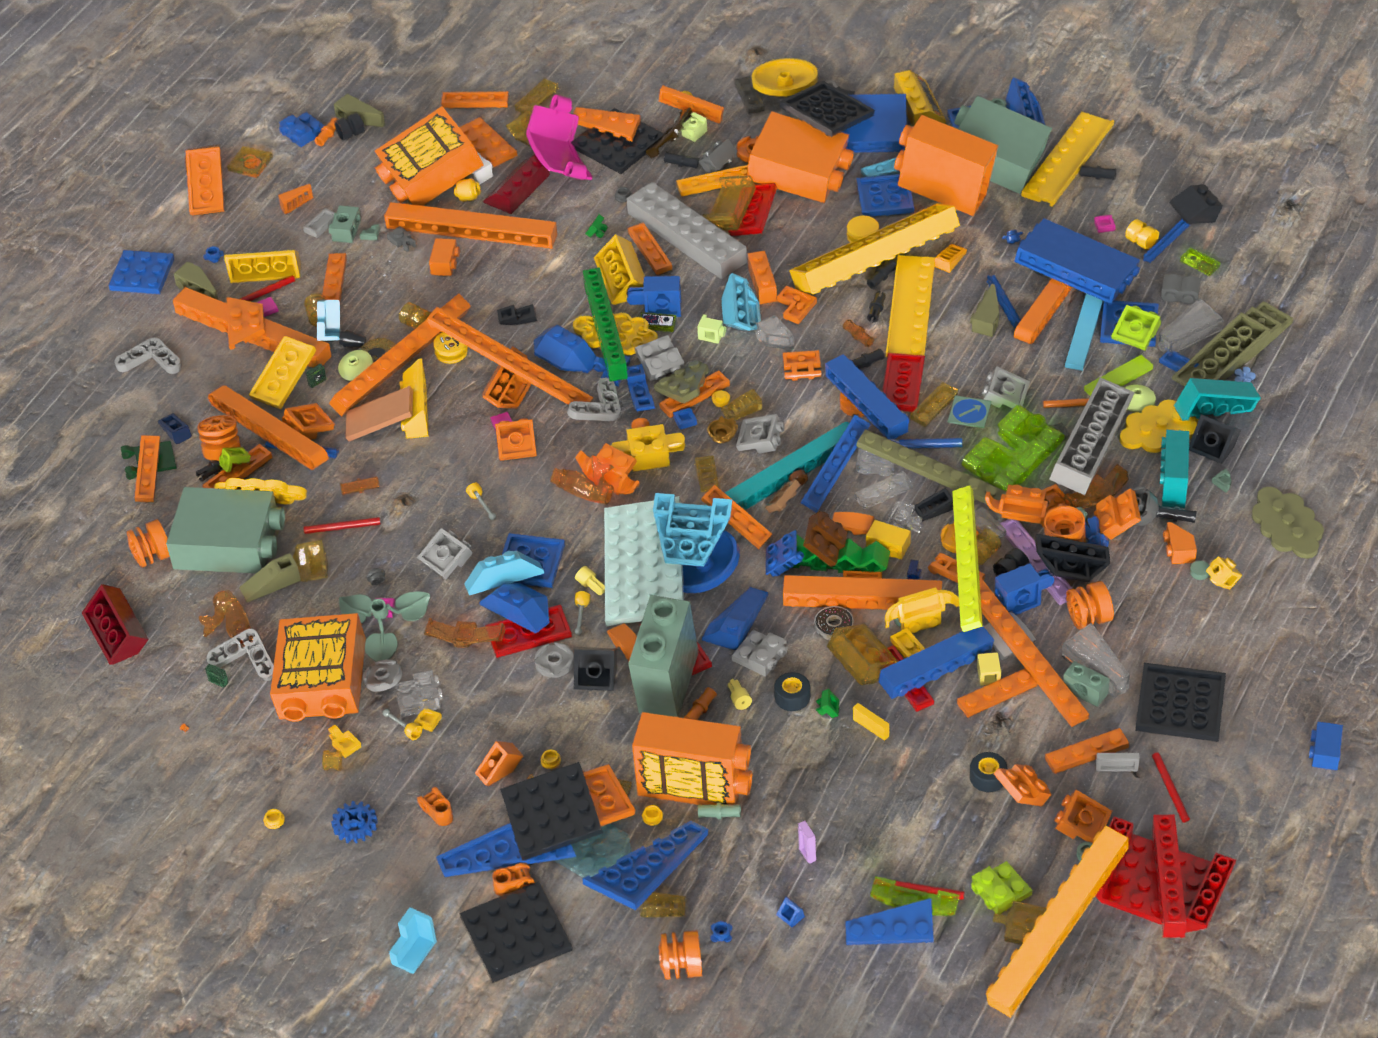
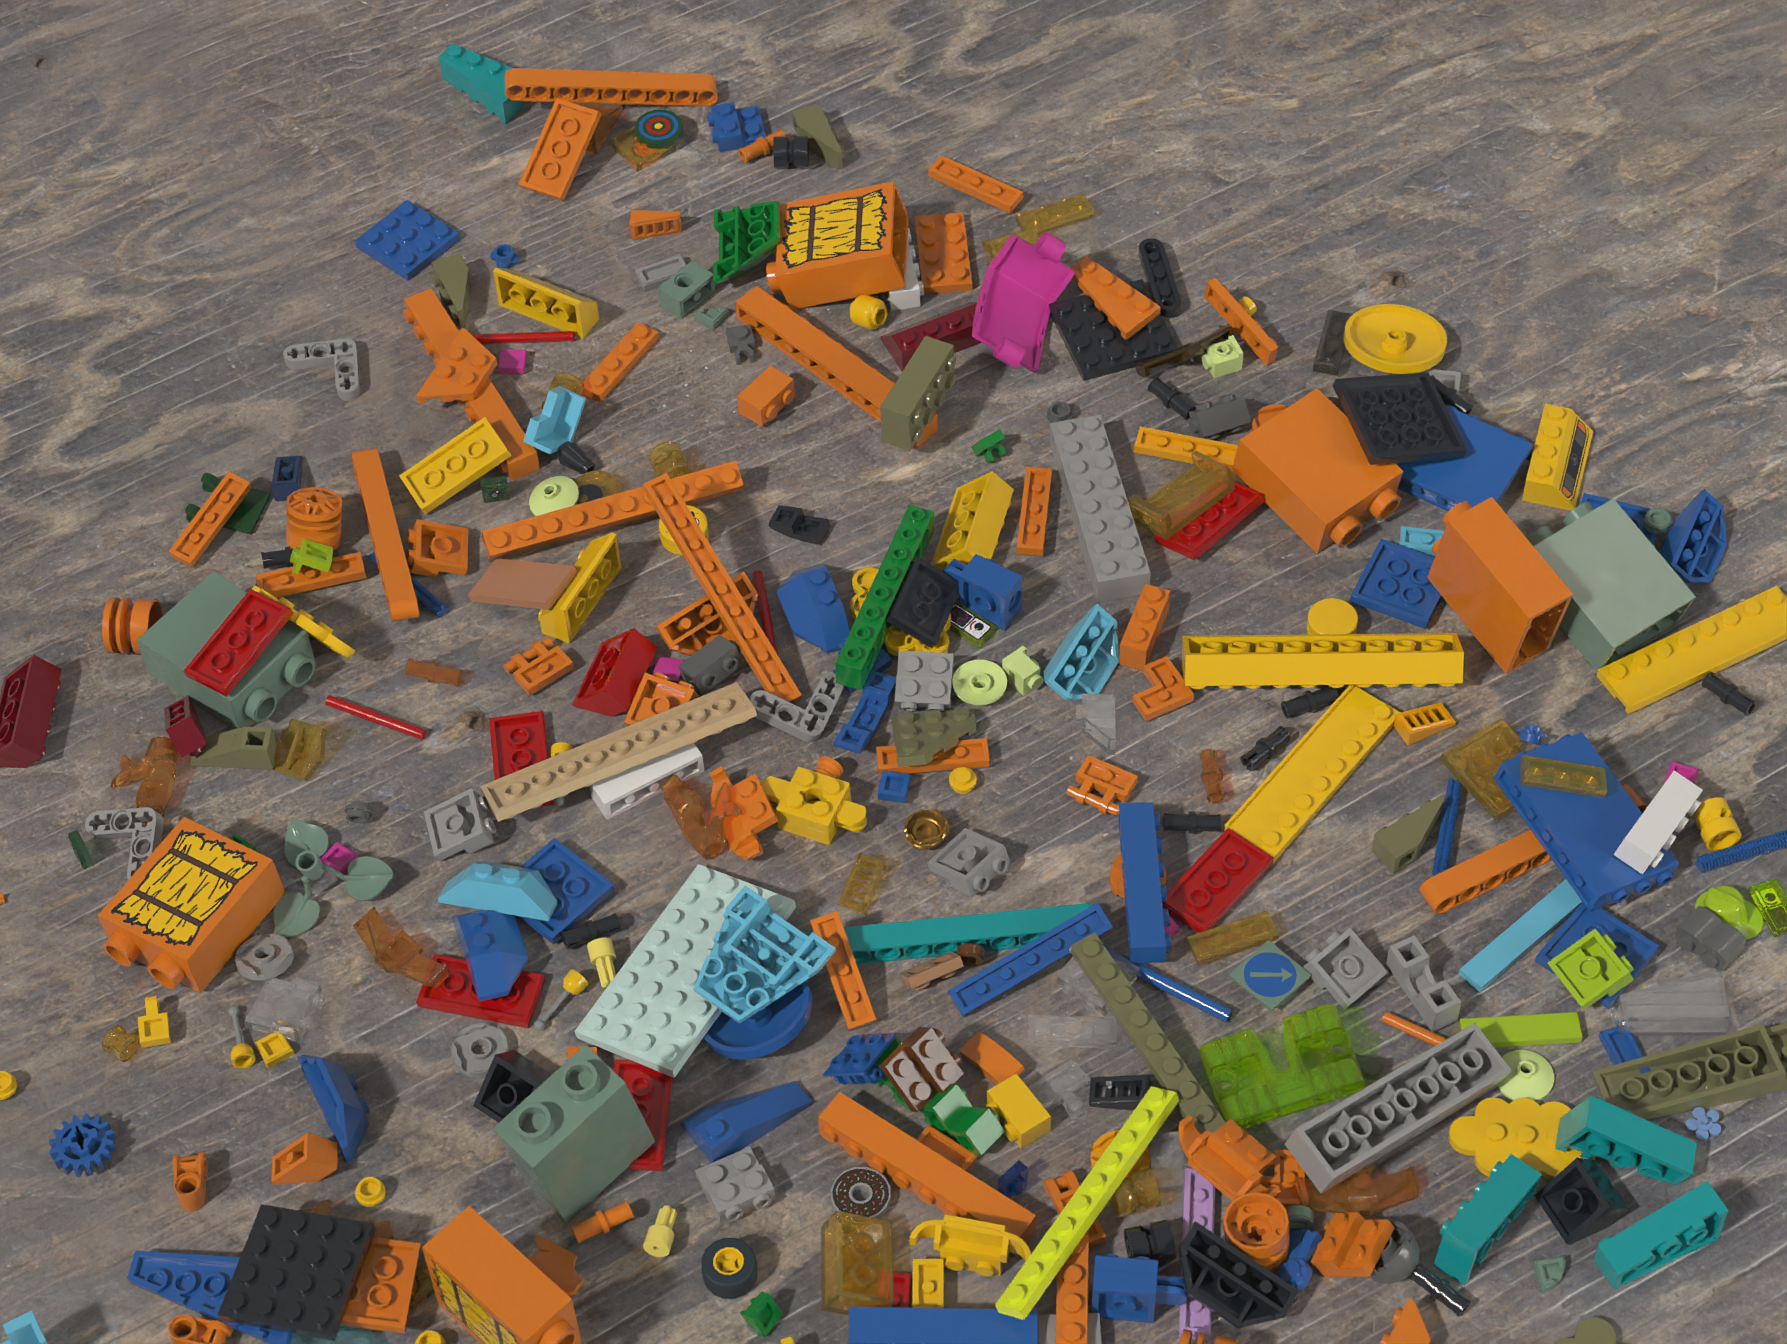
camera: 30 degrees right, 5 degrees up
(124, 165) = (480, 79): none -> teal wedge
(208, 135) = (610, 87): none -> orange beam
(231, 579) = (184, 727): none -> dark red slope
(238, 512) = (238, 642): none -> red plate
(255, 147) = (658, 128): none -> dark green tile
(364, 178) = (745, 238): none -> green wedge
(426, 453) = (541, 671): none -> orange plate
(452, 507) = (518, 743): none -> red tile
(472, 436) = (615, 674): none -> red slope
(489, 722) = (337, 1101): none -> blue wedge
(513, 470) = (618, 751): none -> tan plate
(528, 403) = (711, 664): none -> dark grey brick
(535, 478) = (645, 781): none -> white brick
(542, 211) = (918, 393): none -> olive brick
(569, 570) = (591, 931): none -> black pin
(622, 101) = (1159, 276): none -> black plate
(630, 316) = (924, 602): none -> black plate
(691, 345) = (979, 674): none -> yellowish green dish
(753, 402) = (987, 815): clear yellow slope -> none
(999, 261) = (1477, 762): none -> clear yellow plate
(1040, 373) = (1411, 969): none -> light grey arch
(1054, 240) = (1563, 776): none -> clear yellow plate
(1118, 242) = (1658, 822): none -> white brick
(1177, 267) = (1732, 909): none -> lime piece
(1268, 432) = (1662, 1236): none -> teal wedge

